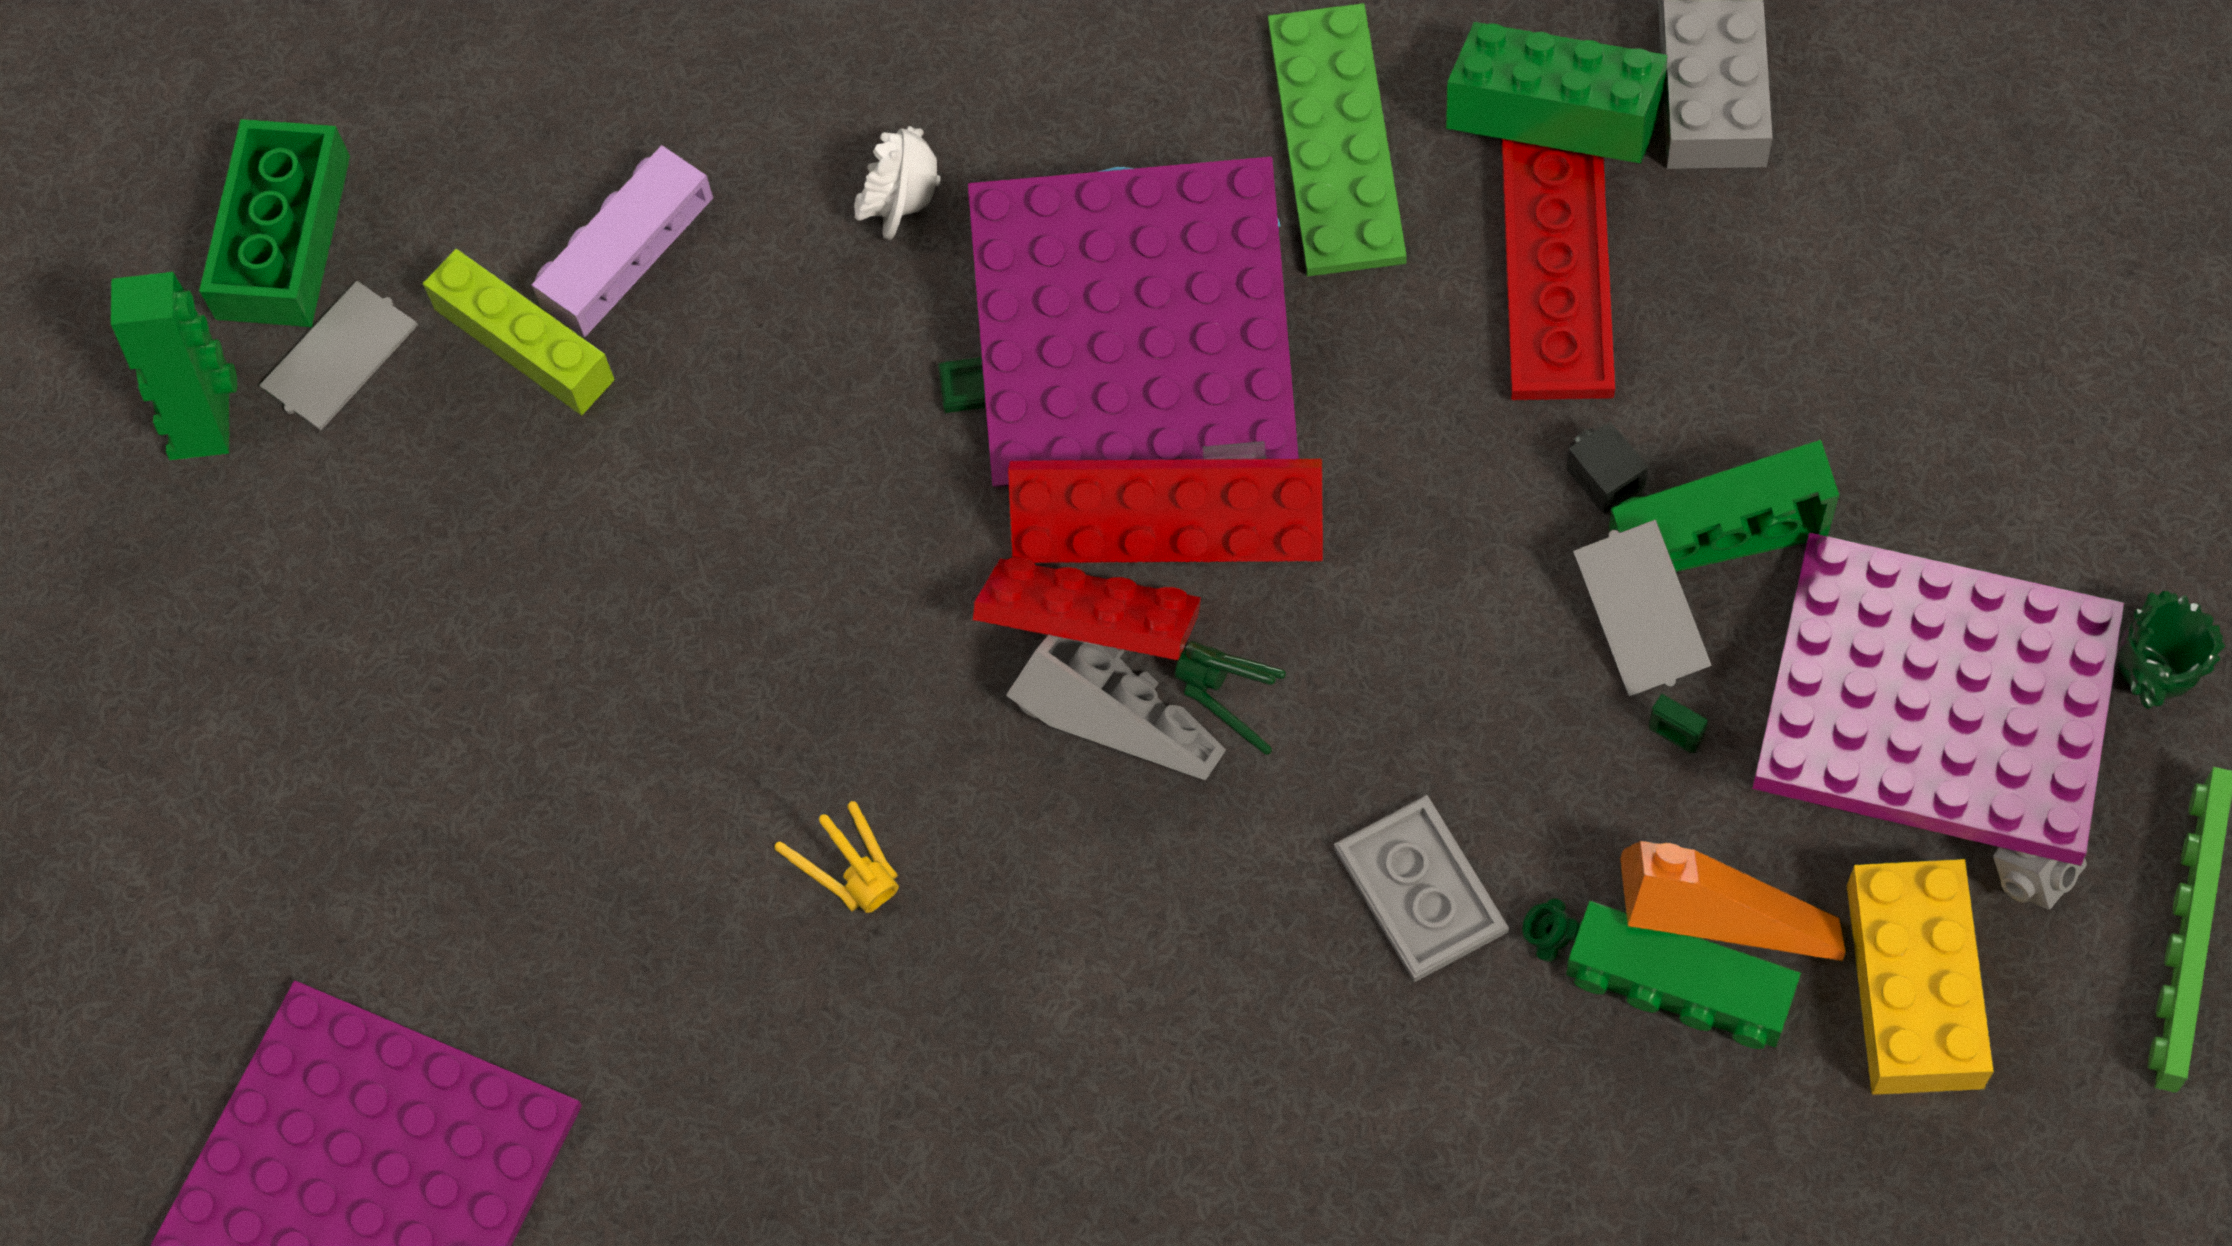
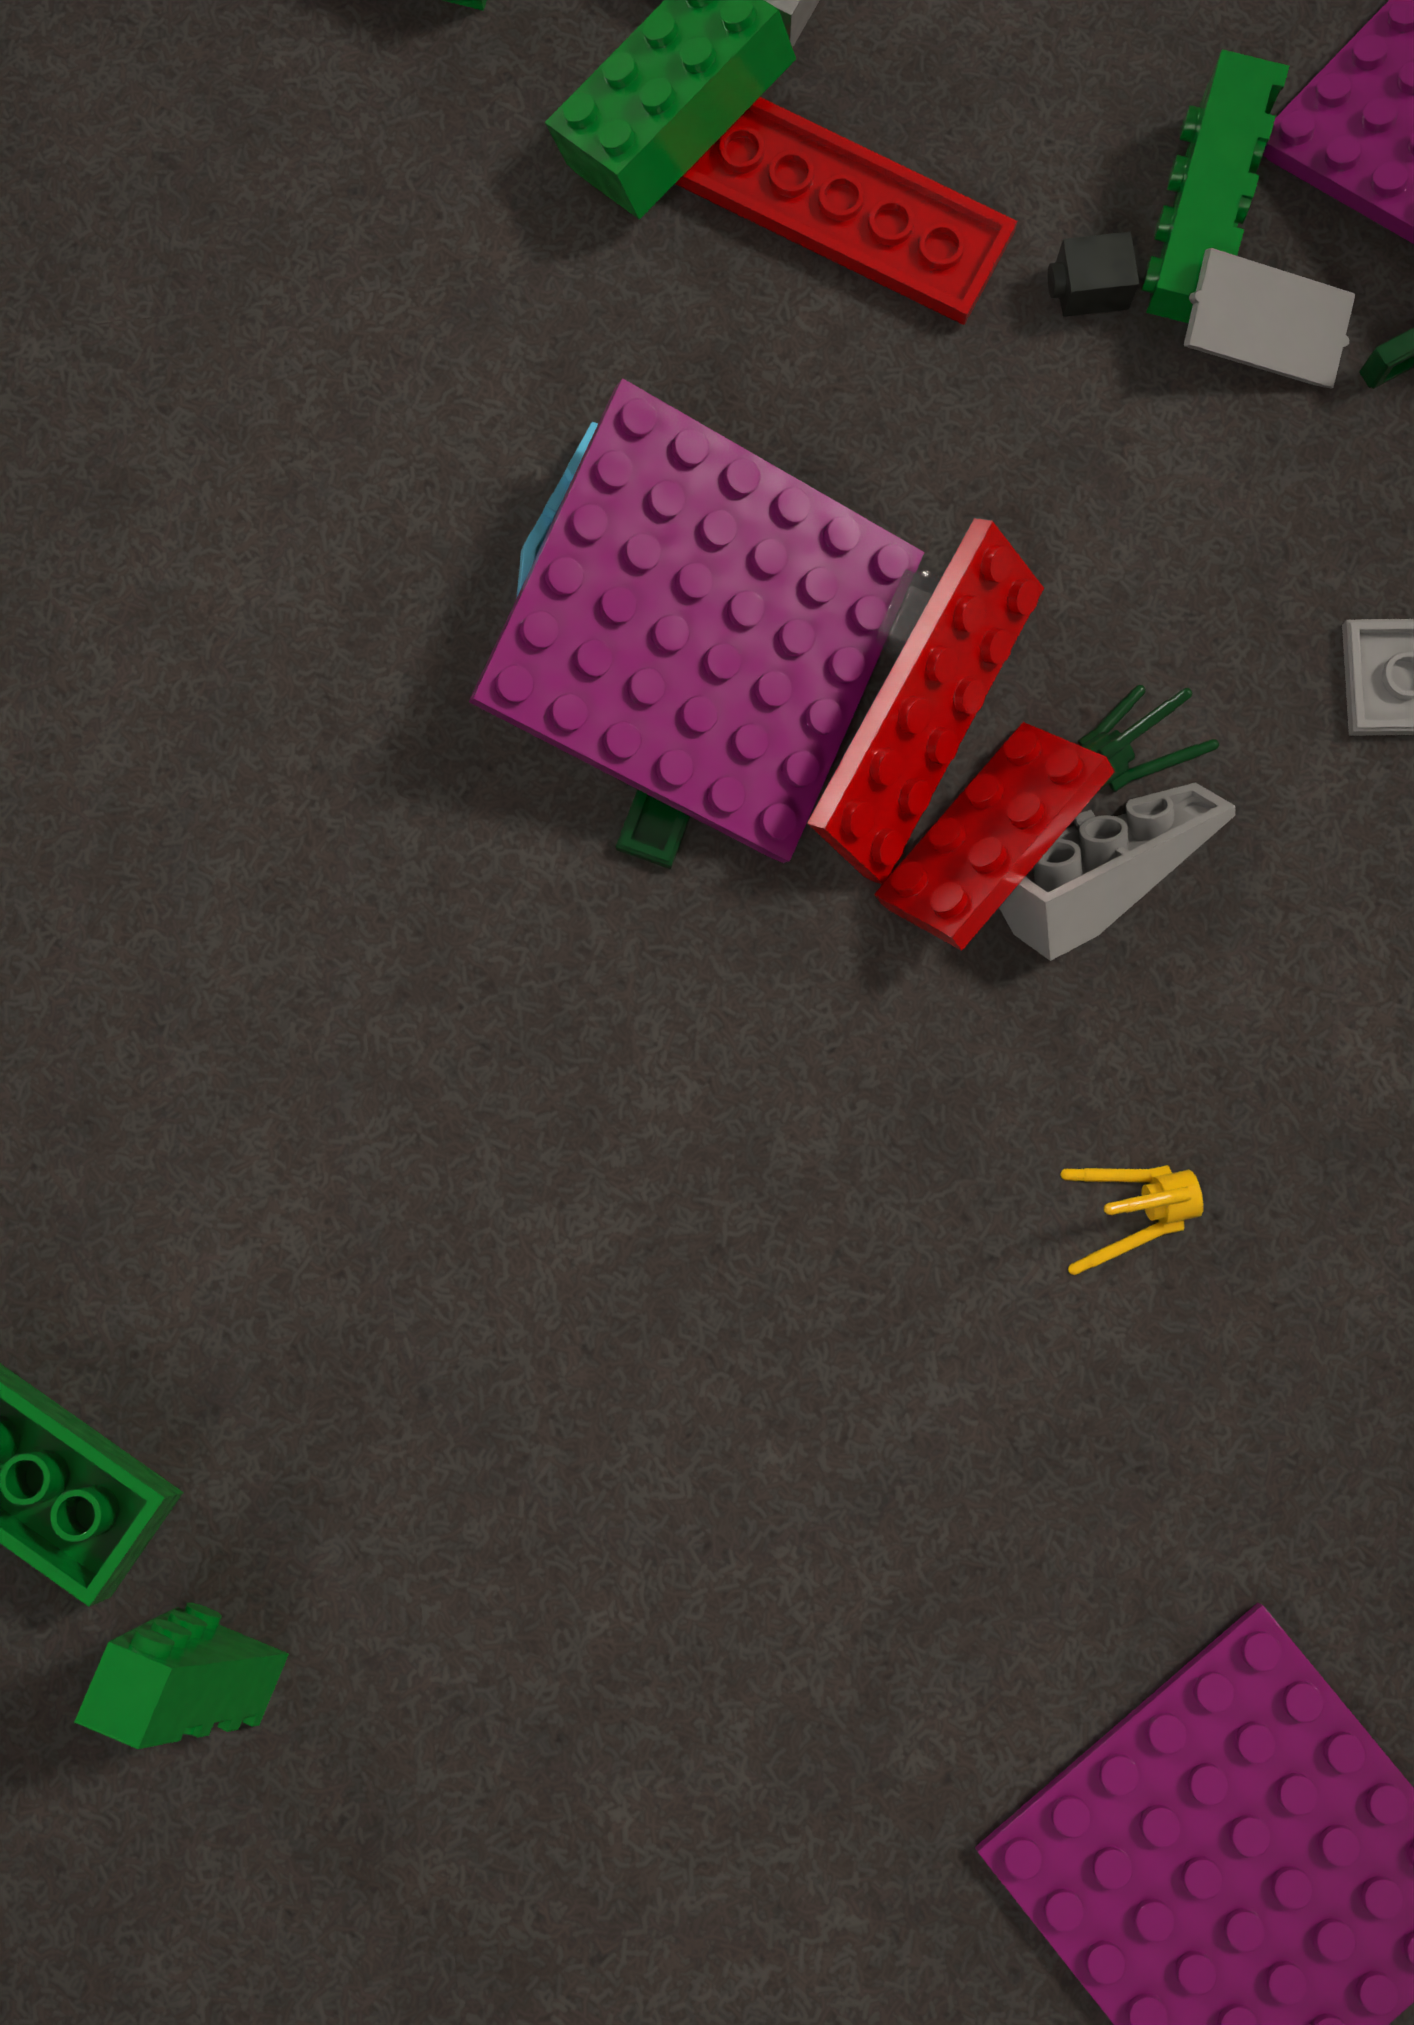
camera: 70 degrees left, 15 degrees up
(338, 355) = (235, 1477): light grey piece -> none
(519, 331) = (330, 1266): lime brick -> none
(622, 240) = (280, 1103): lavender brick -> none
(900, 181) = (398, 777): white hair -> none
(1336, 140) = (573, 327): bright green plate -> none

